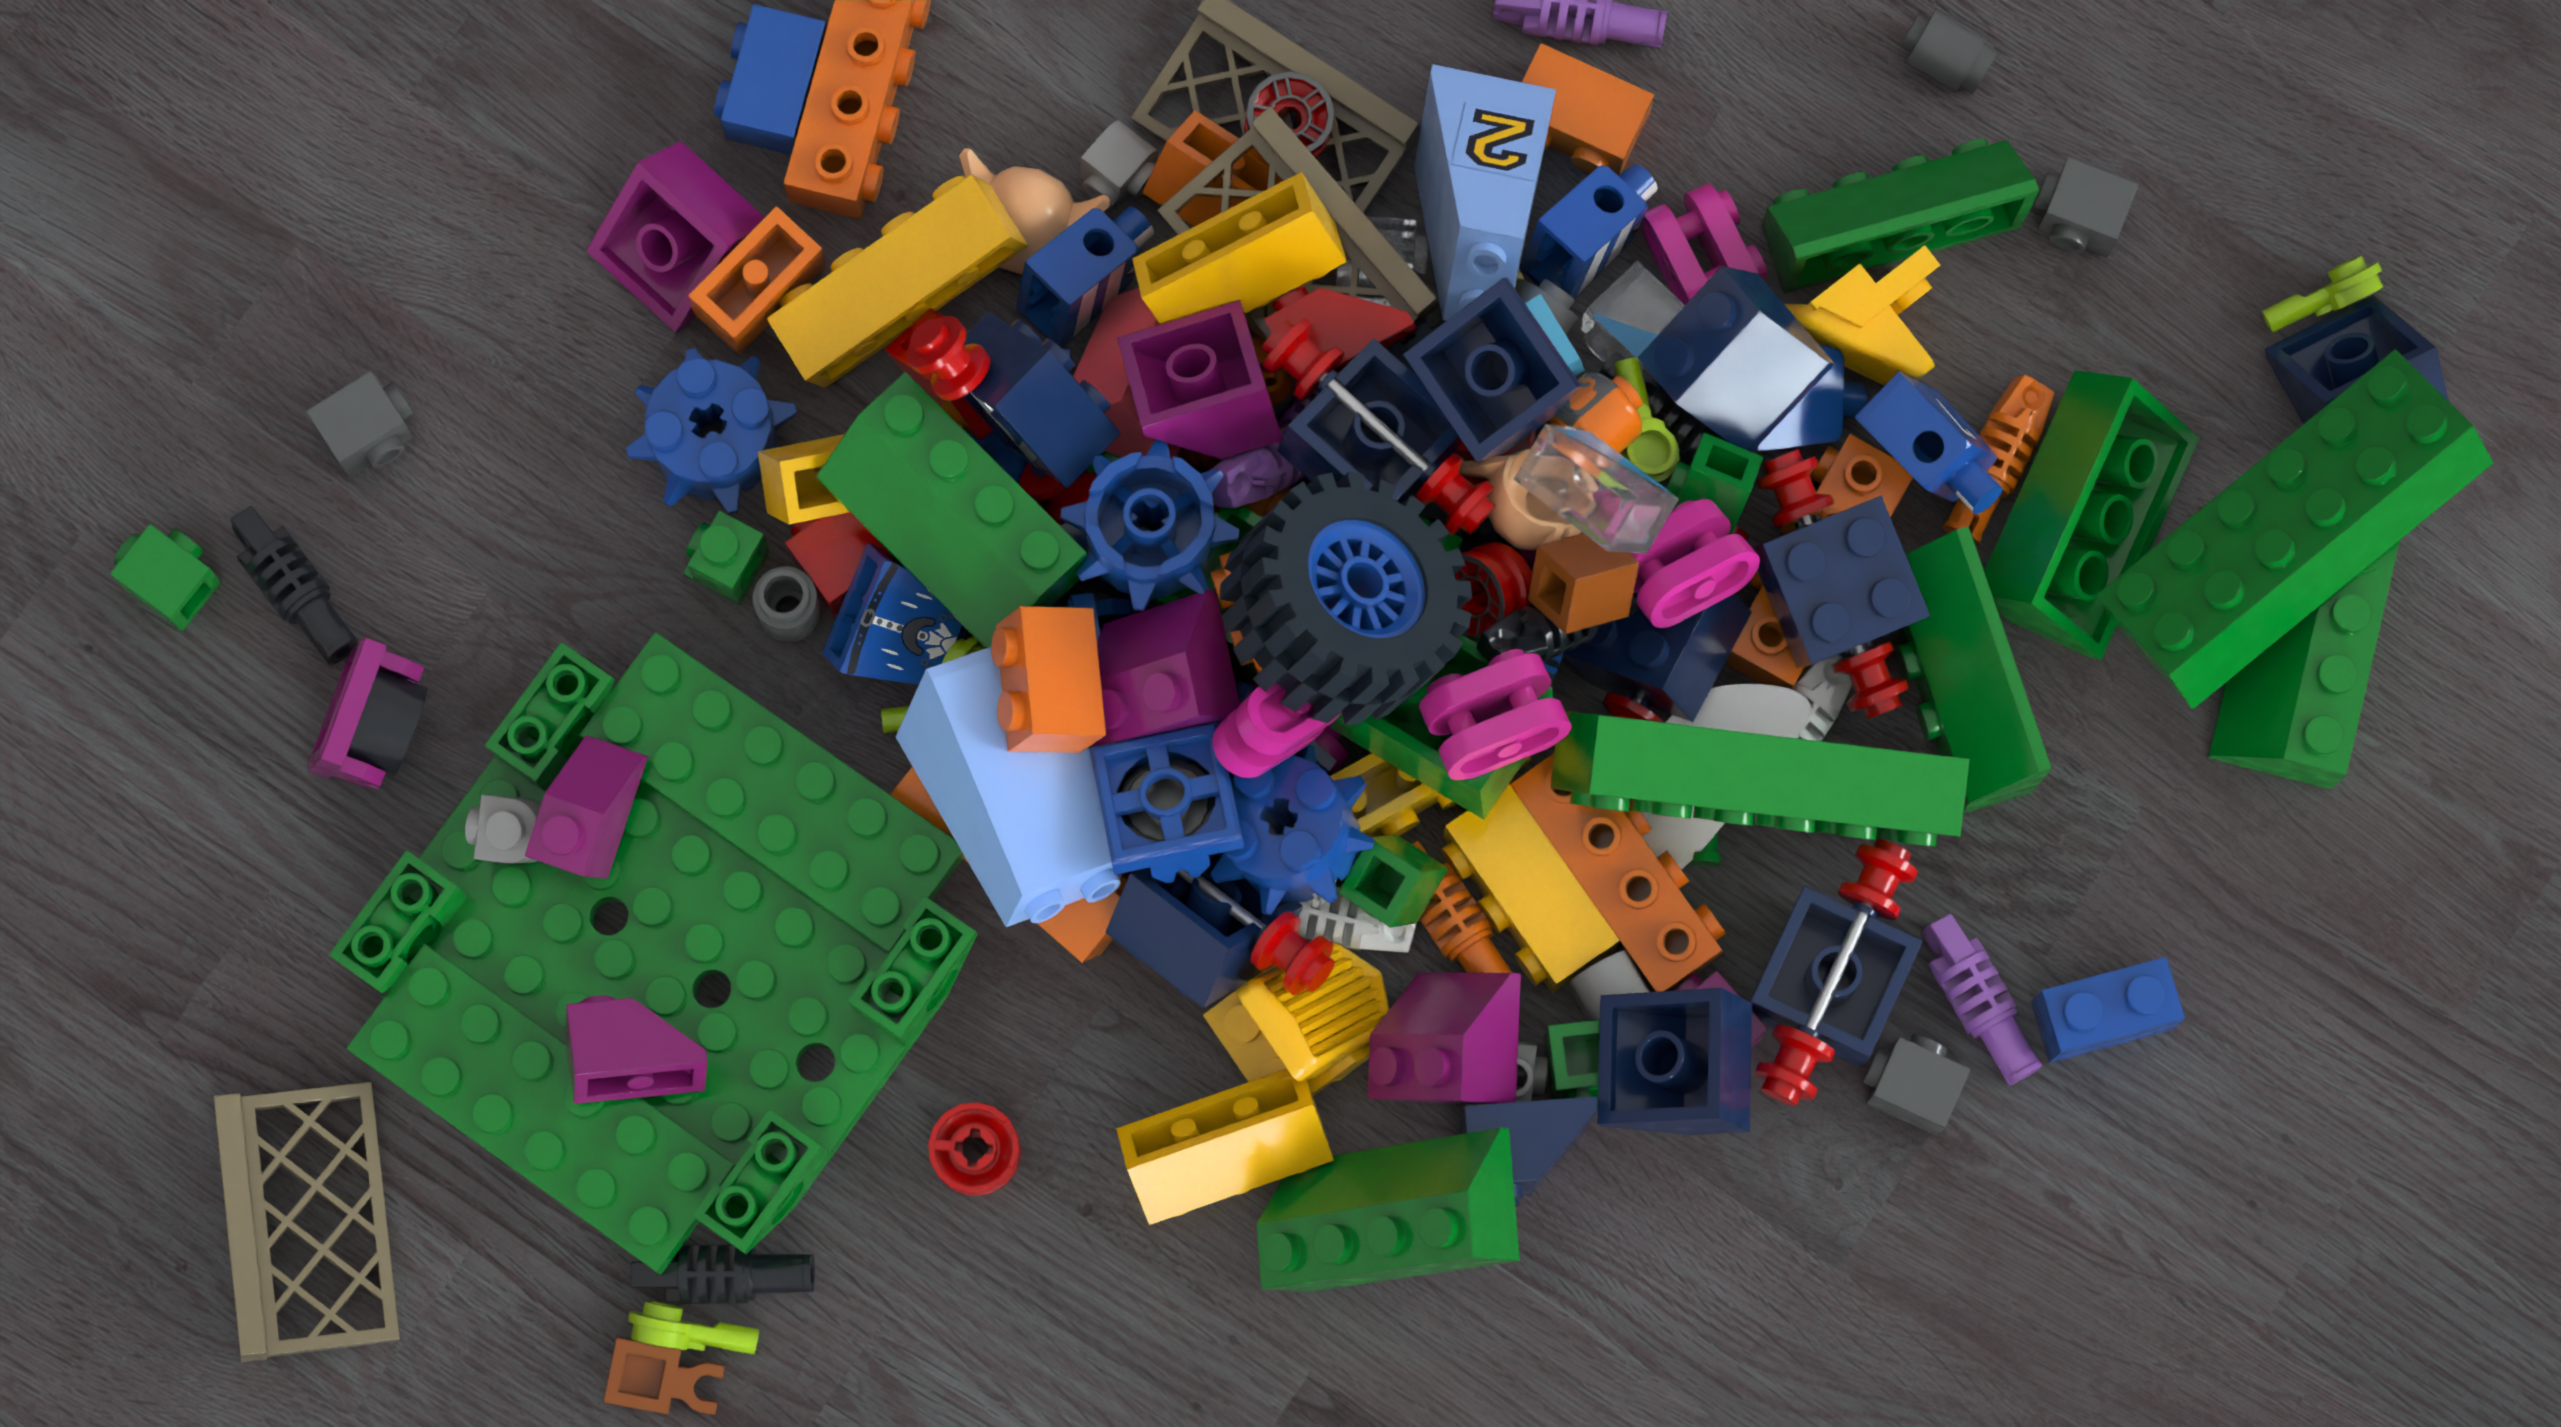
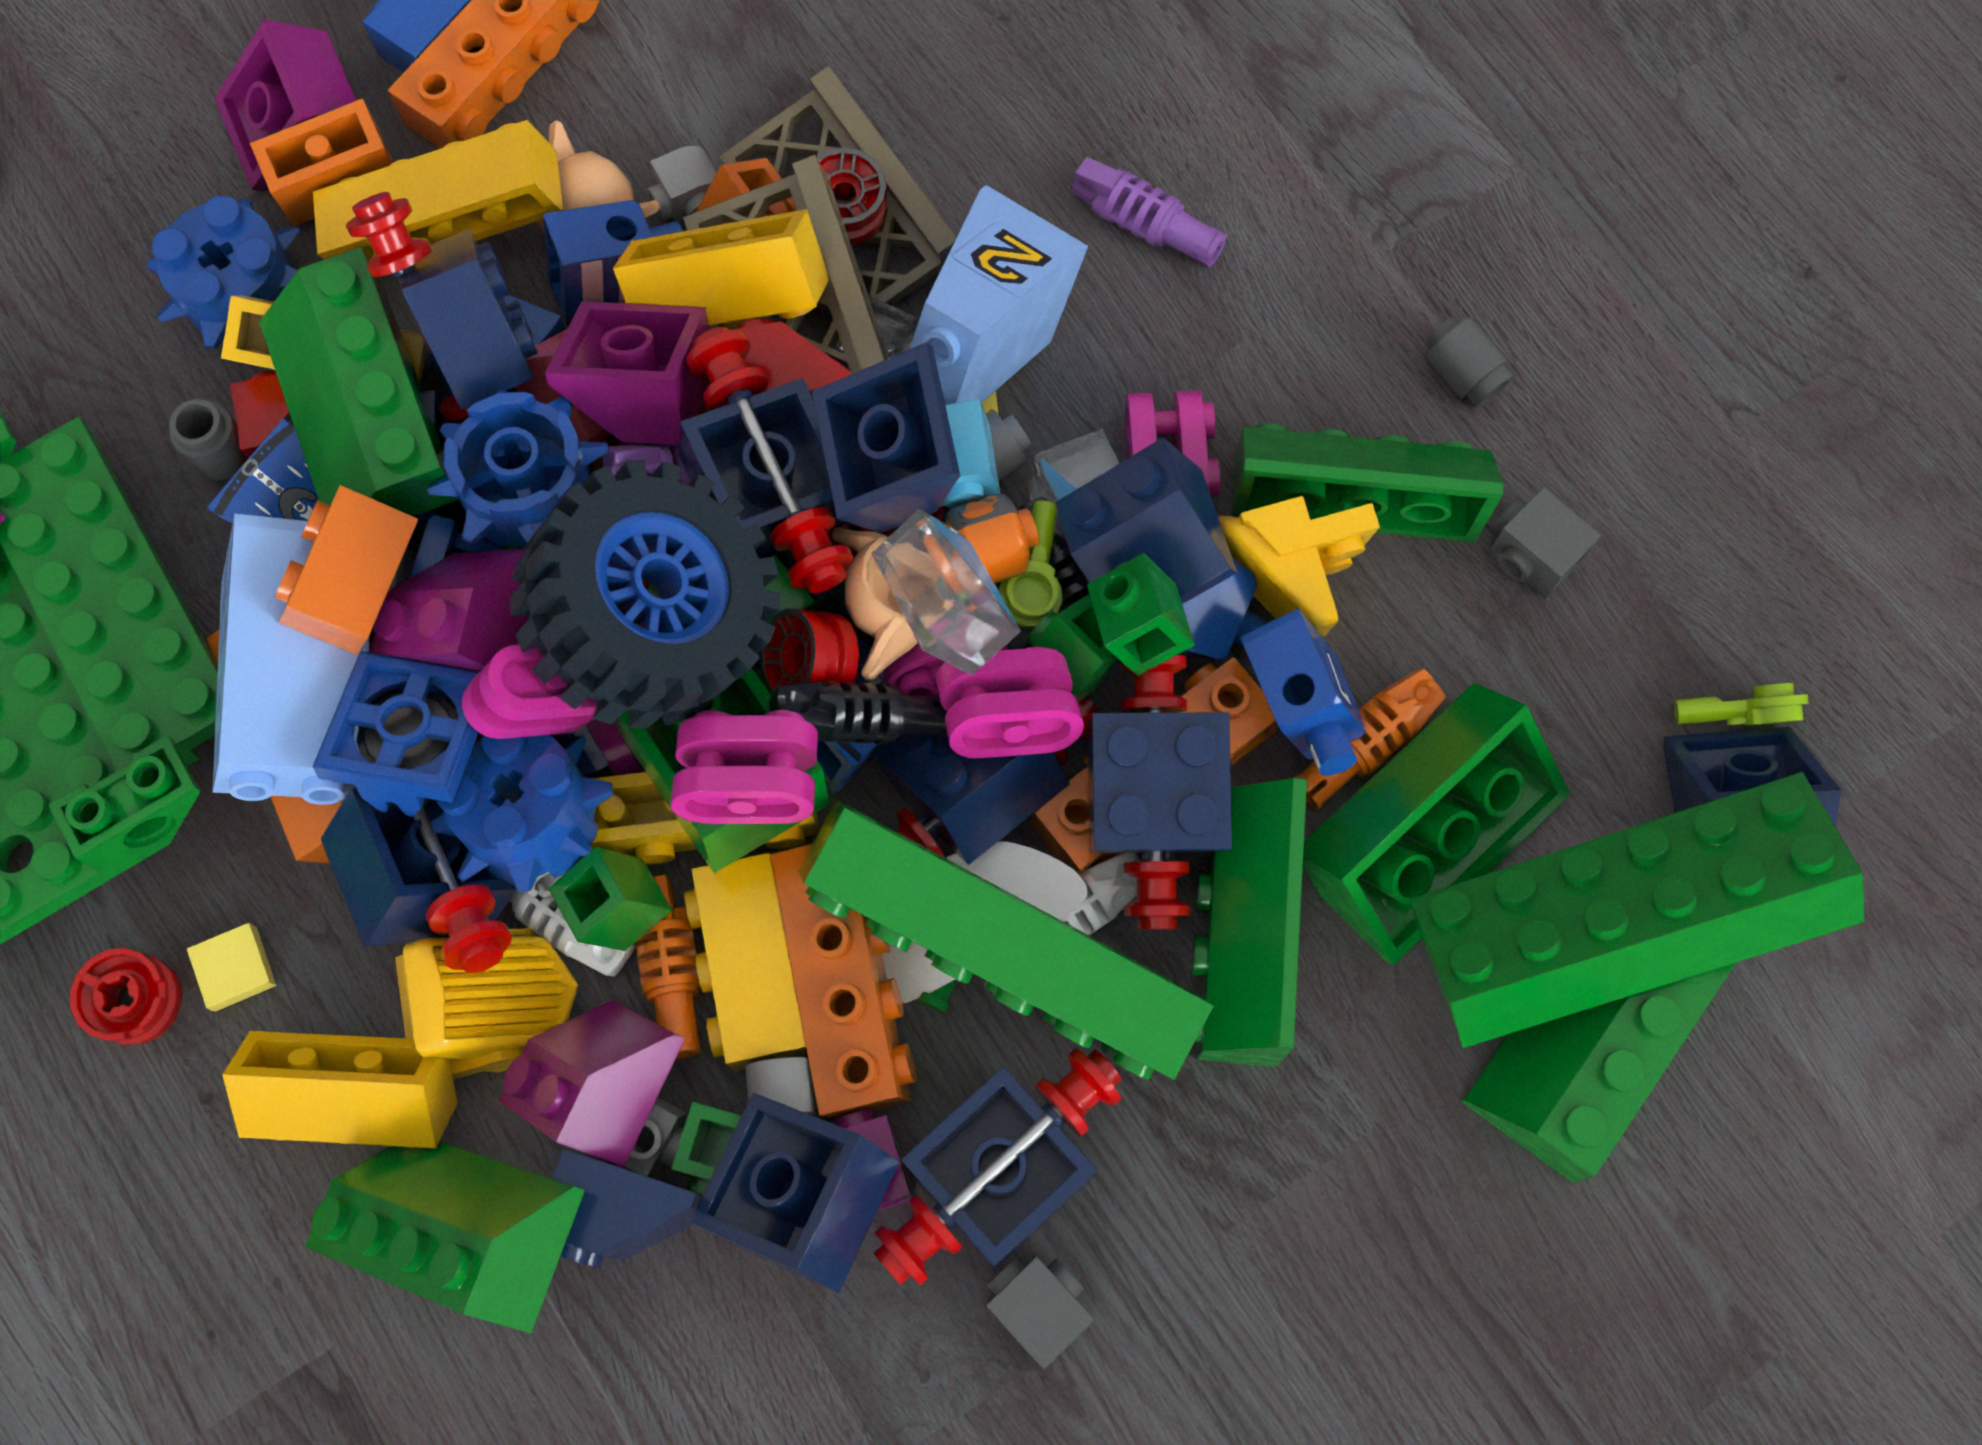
camera: 25 degrees right, 5 degrees down
(726, 557) = (175, 369): green brick -> none
(1054, 1085) = (231, 967): none -> light yellow tile
(1582, 583) = (894, 679): dark orange brick -> none
(1588, 228) = (1071, 387): blue torso -> none
(1592, 112) = (1119, 294): orange brick -> none
(1766, 437) = (1140, 614): none -> green brick
(1979, 997) = (1139, 1249): medium lavender hinge -> none
(2107, 1009) = (1261, 1315): blue brick -> none

